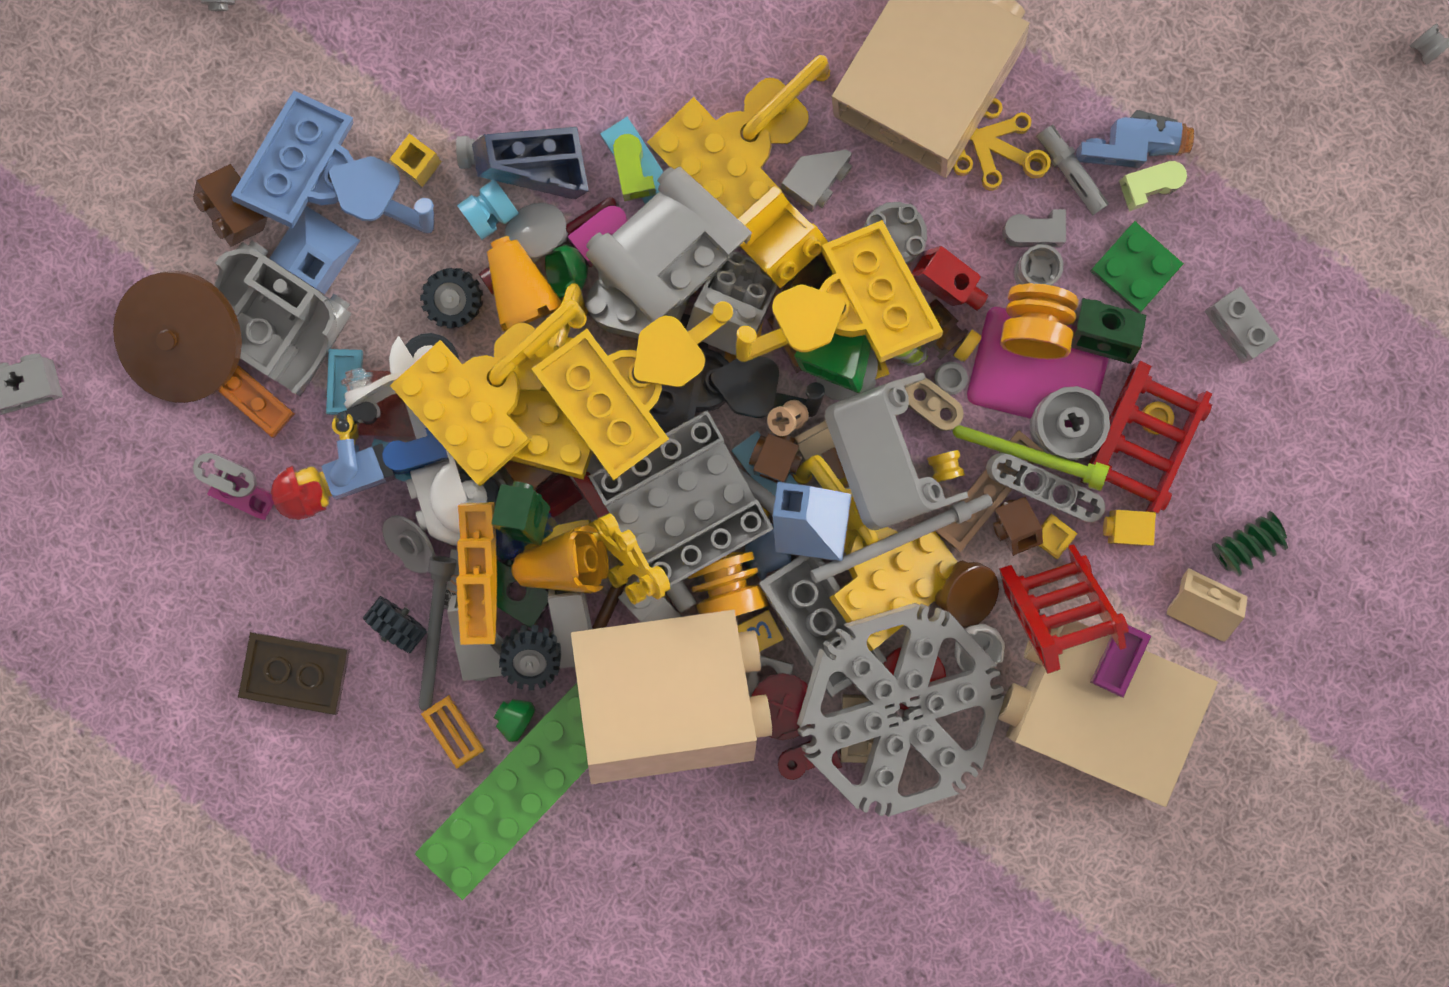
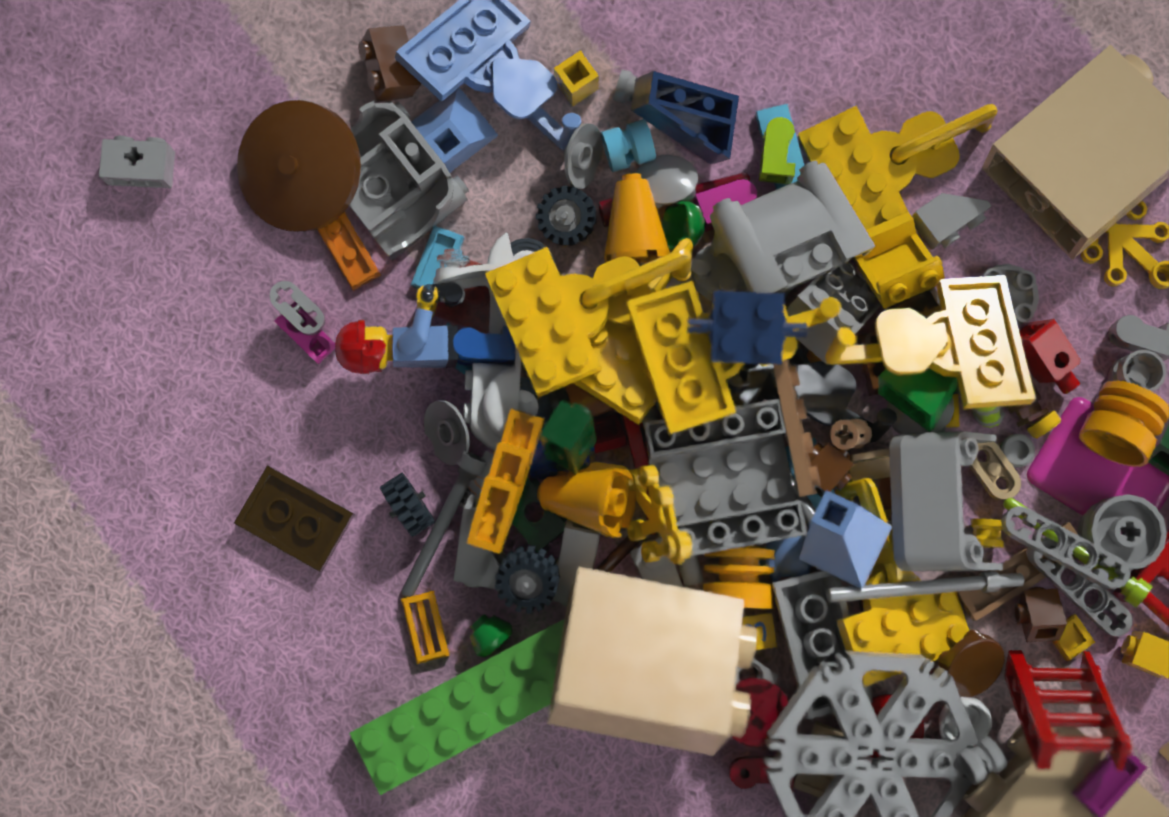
camera: 20 degrees right, 5 degrees down
(447, 234) = (583, 155): none -> light grey dish
(651, 357) = (746, 327): none -> dark blue plate
(726, 420) = (799, 442): none -> medium nougat plate
(1001, 679) = (981, 760): none -> light grey wheel
(1017, 461) = (1063, 551): none -> light grey beam

